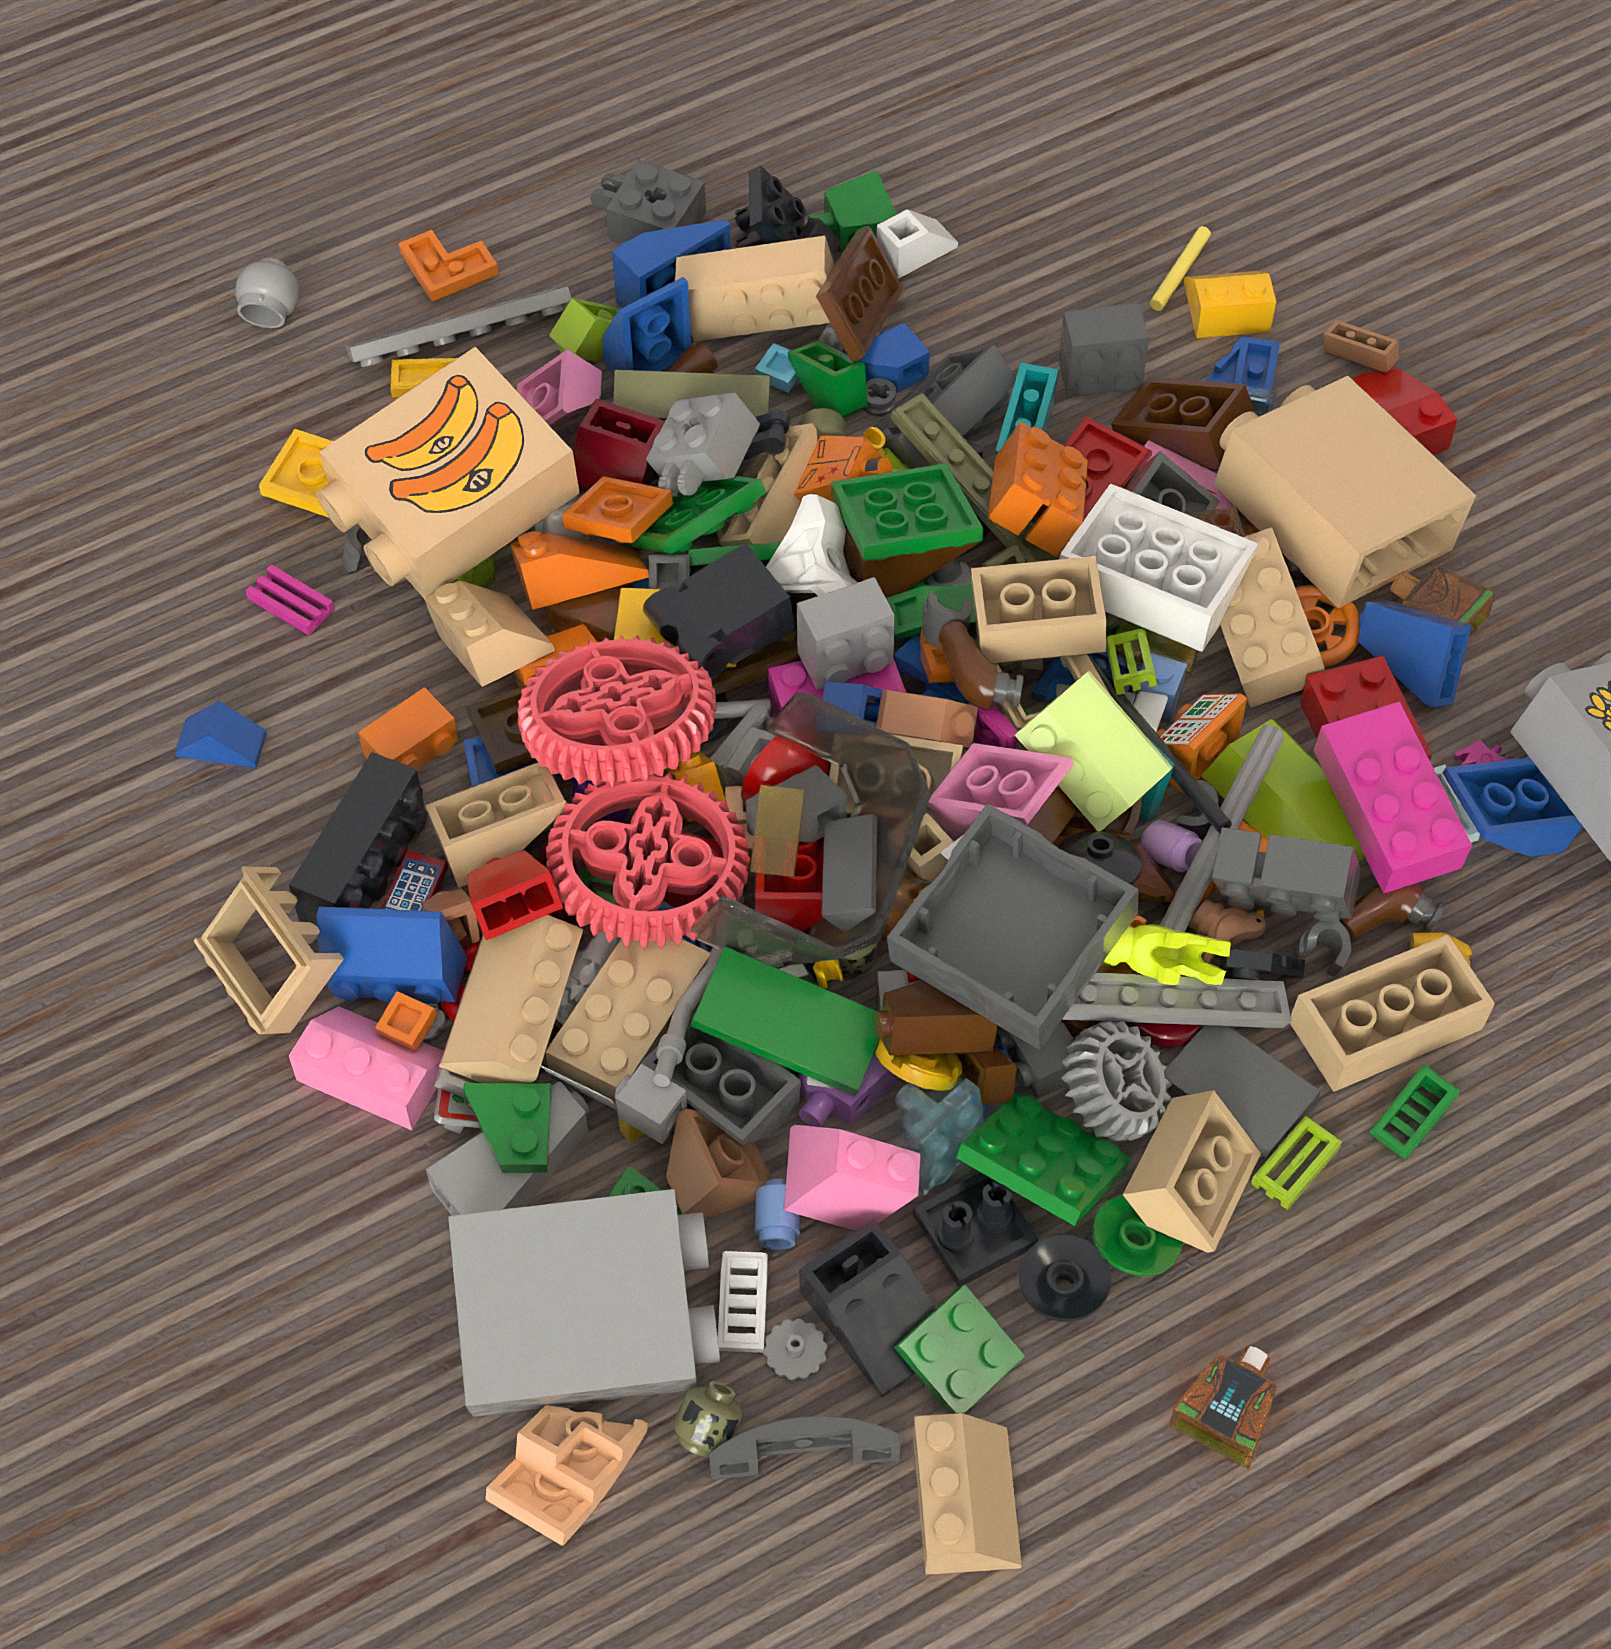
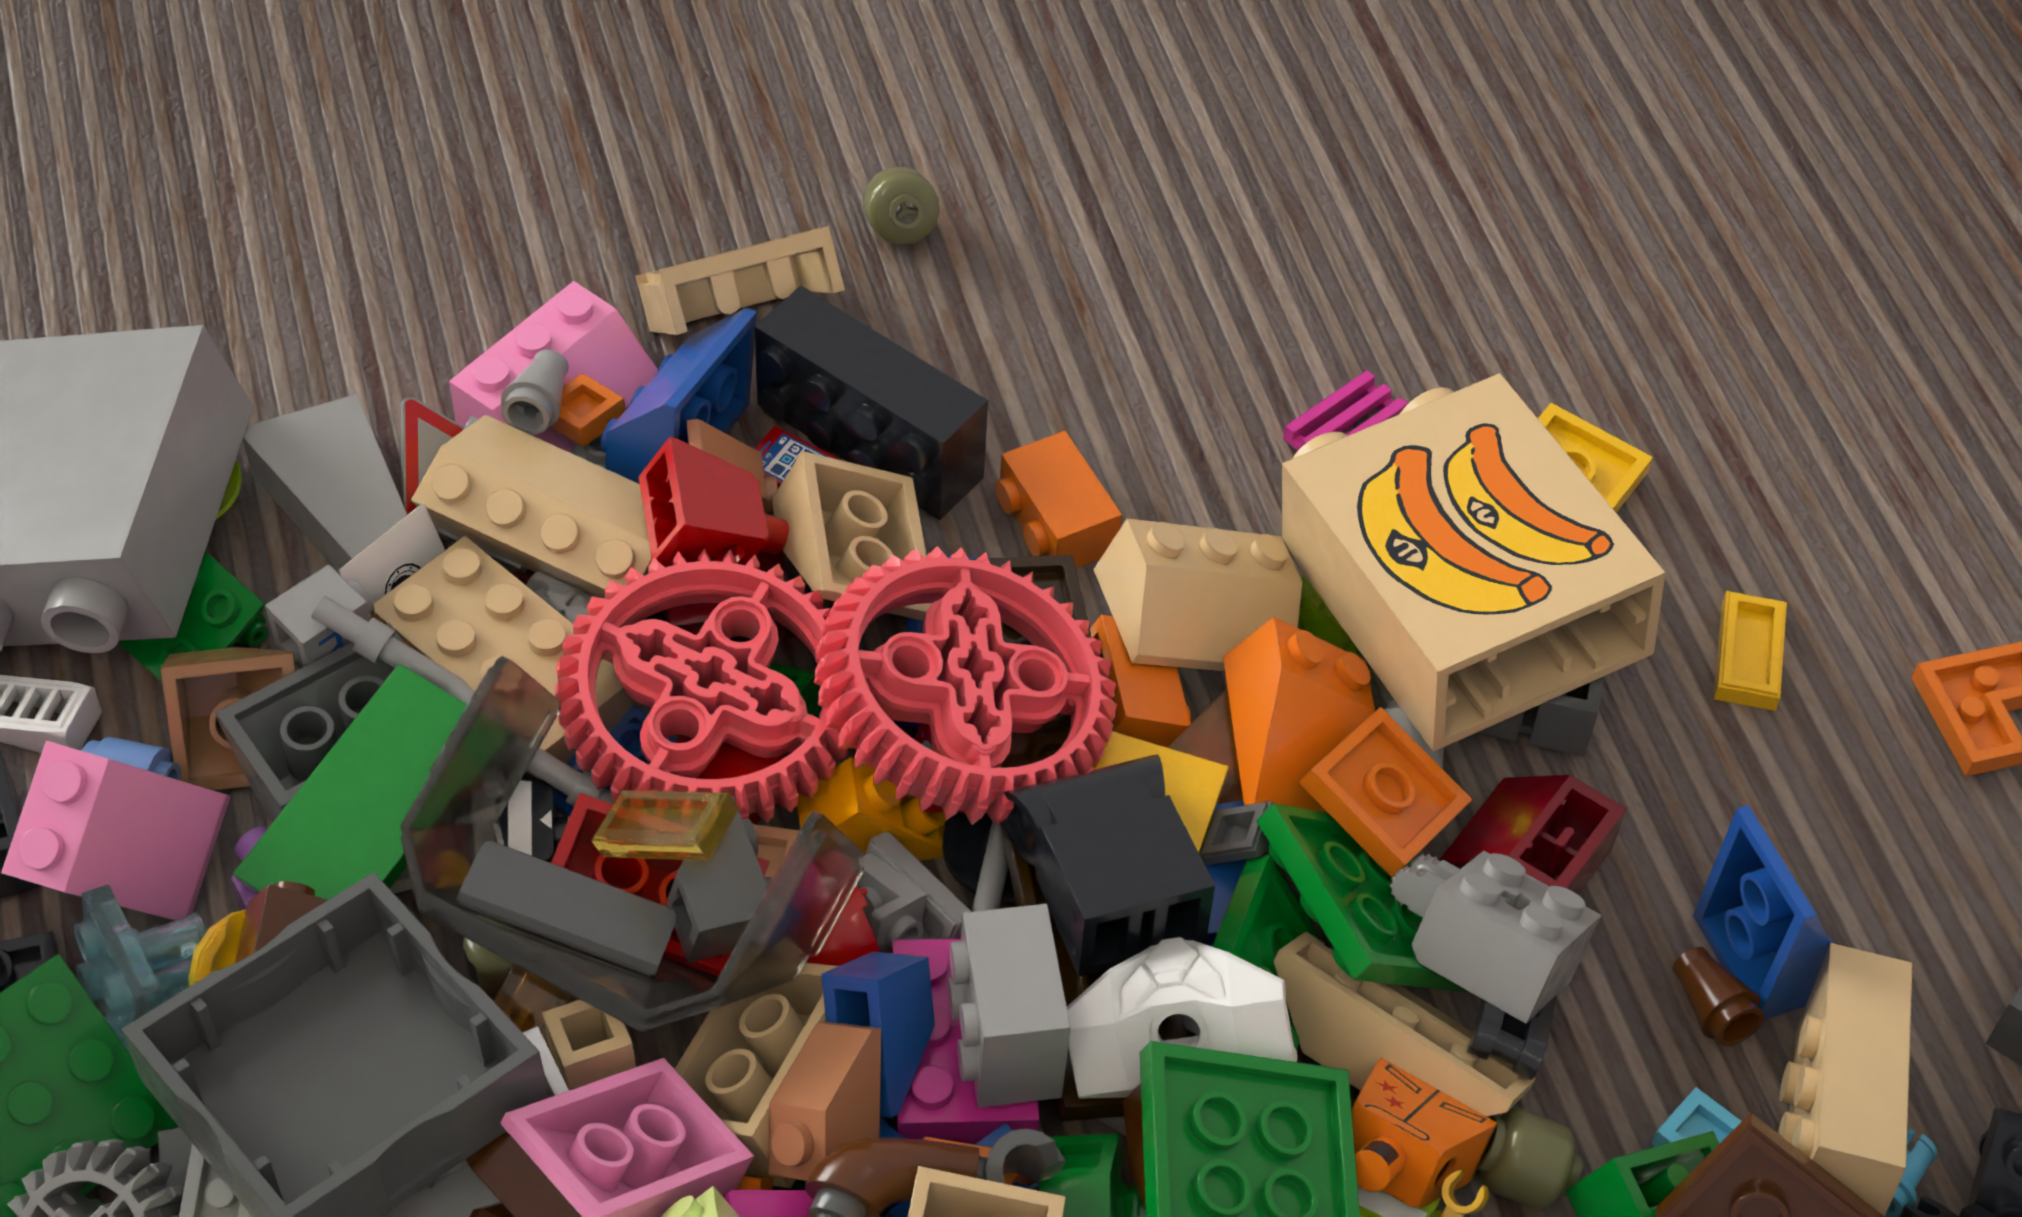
camera: 100 degrees right, 5 degrees down
(150, 883) = (895, 188): none -> olive head
(221, 737) = (1119, 319): blue slope -> none
(266, 293) = (1926, 455): light grey piece -> none
(415, 1034) = (535, 395): none -> light grey cone
(443, 330) = (1854, 714): light grey plate -> none
(514, 1122) = (365, 483): green wing -> none
(562, 388) = (1672, 796): bright pink slope -> none
(582, 328) = (1827, 866): lime slope -> none
(650, 258) = (1949, 1005): blue slope -> none
(657, 391) = (1632, 974): olive brick -> none

